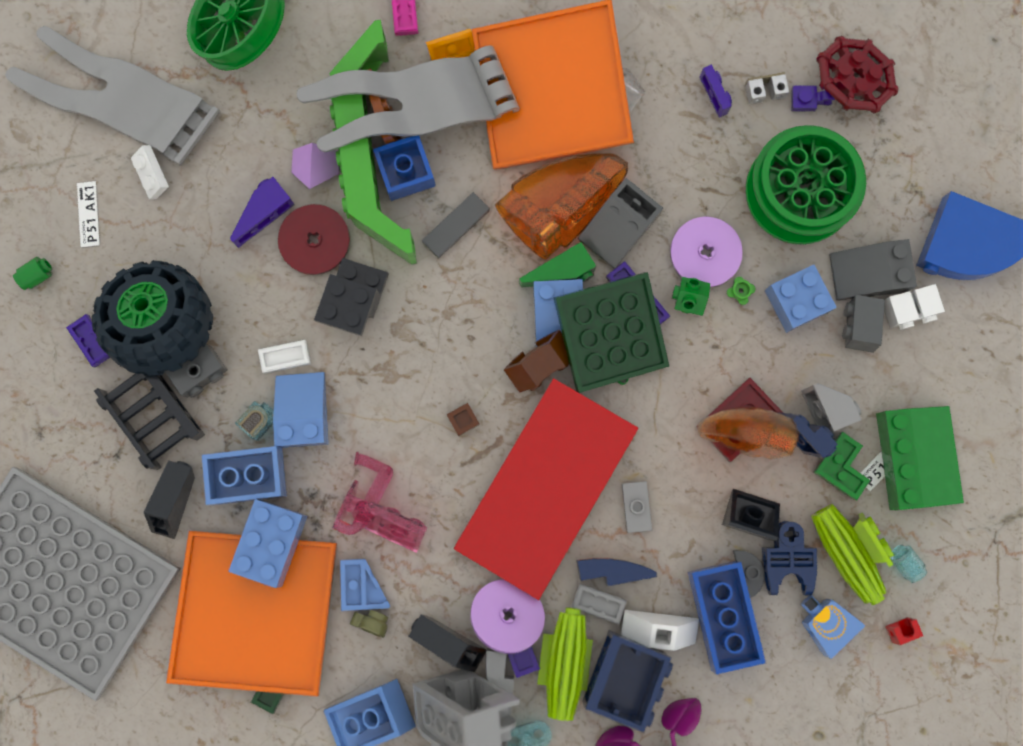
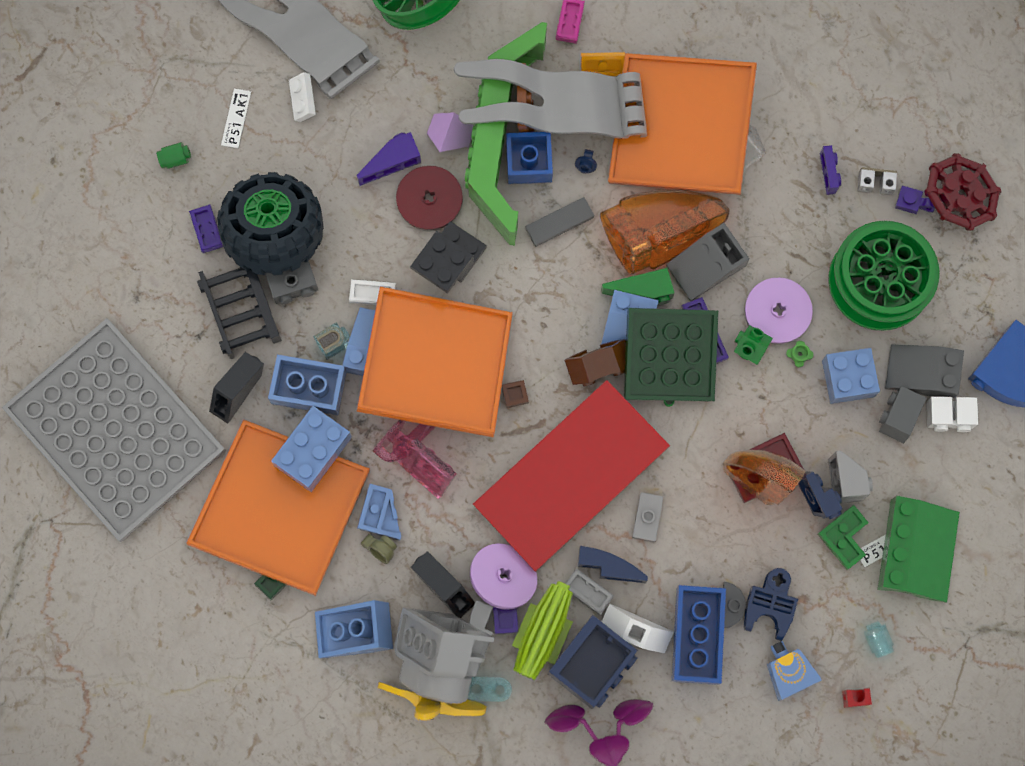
camera: 15 degrees right, 5 degrees down
(369, 413) = (435, 362): none -> orange tile
(465, 156) = (585, 163): none -> dark blue plate
(752, 515) = (749, 555): black slope -> none
(855, 551) = (832, 612): lime plate -> none

